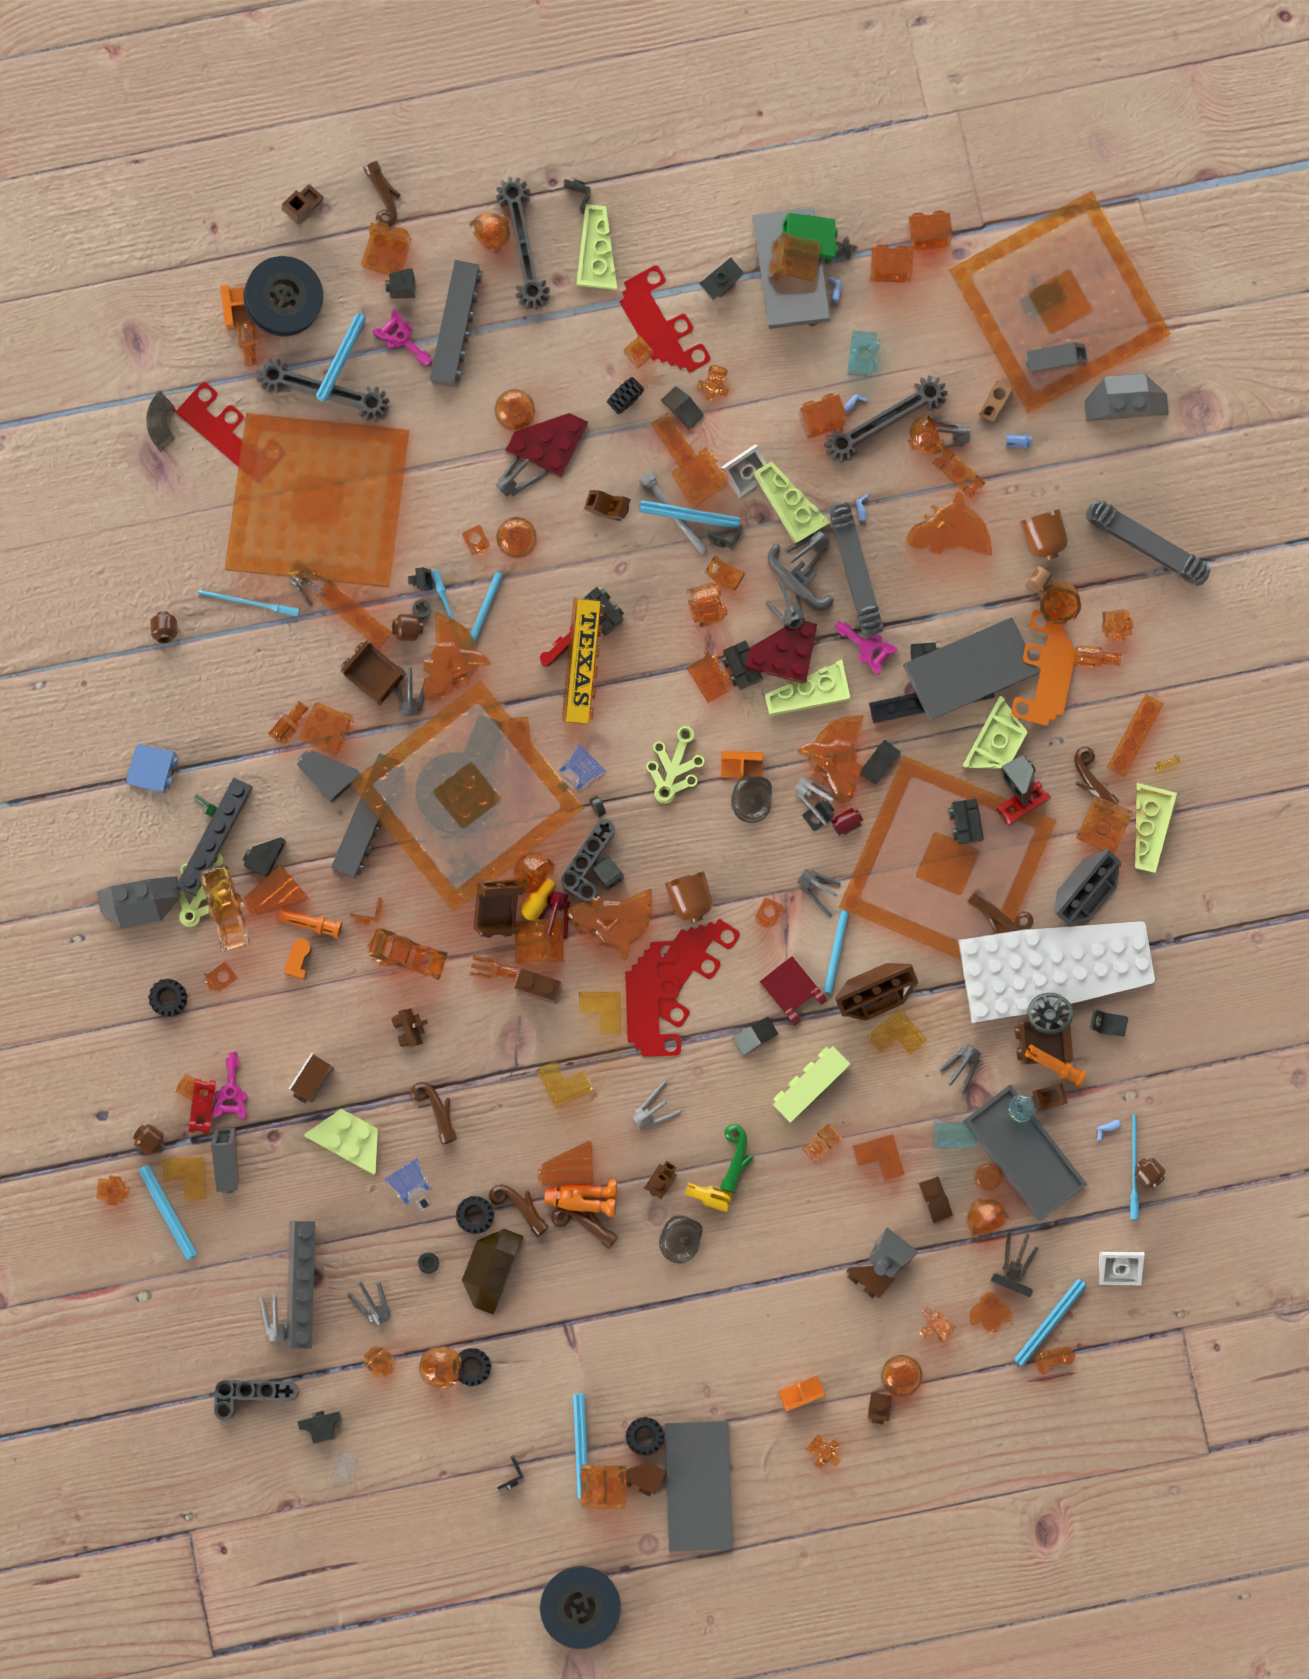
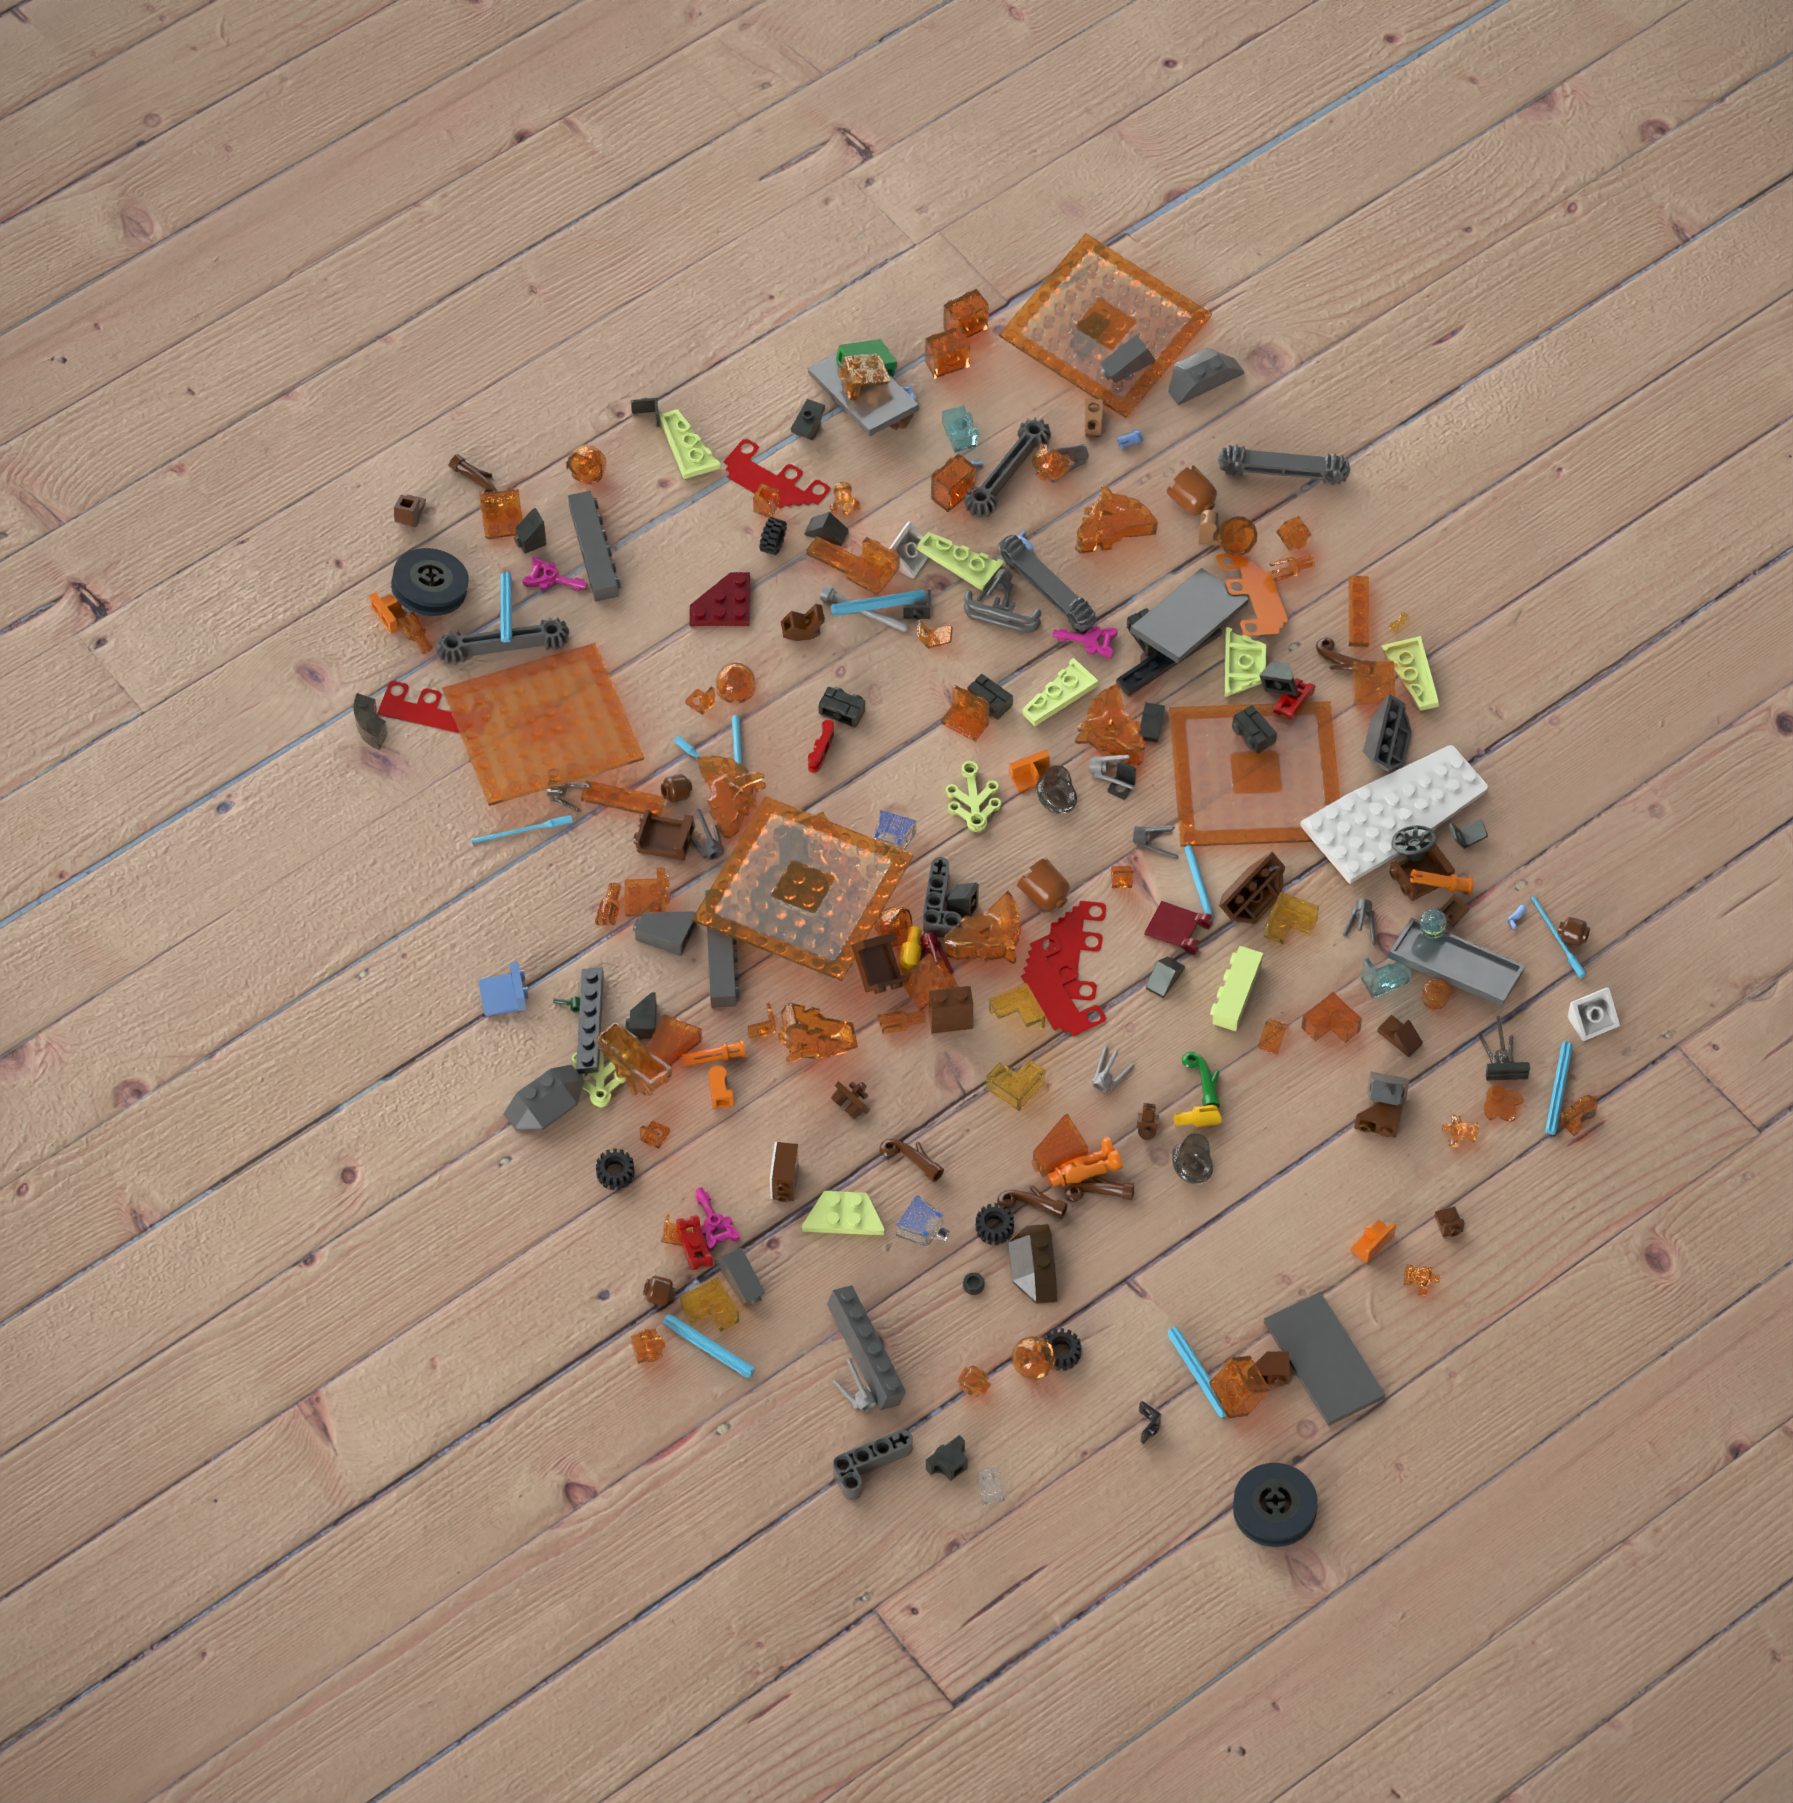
camera: 30 degrees left, 25 degrees down
(163, 627) = (455, 877): reddish brown head -> none
(378, 1314) = (951, 1343): dark grey plant -> none
(422, 579) = (669, 747): pearl dark grey tile -> none
(426, 605) = (683, 767): dark grey bush -> none
(507, 484) = (705, 646): dark grey plant -> none
(514, 410) = (680, 589): clear orange cylinder -> none
(522, 243) = (594, 433): dark grey arm -> none
(581, 660) = (847, 744): brick -> none
(597, 806) = (923, 855): pearl dark grey tile -> none
(635, 1426) = (1256, 1326): black tyre -> none
(706, 605) = (932, 661): clear orange brick -> none
(784, 653) = (1021, 669): dark red plate -> none
(792, 617) = (1011, 637): dark grey plant -> none
(845, 248) = (902, 362): clear smoke plant -> none
(847, 821) = (1149, 776): dark red brick -> none
(901, 1375) = (1453, 1186): clear orange cylinder -> none
(958, 472) = (1091, 480): clear orange plate -> none
(985, 1217) = (1453, 1025): clear orange cylinder -> none
(994, 915) = (1321, 791): reddish brown plant -> none

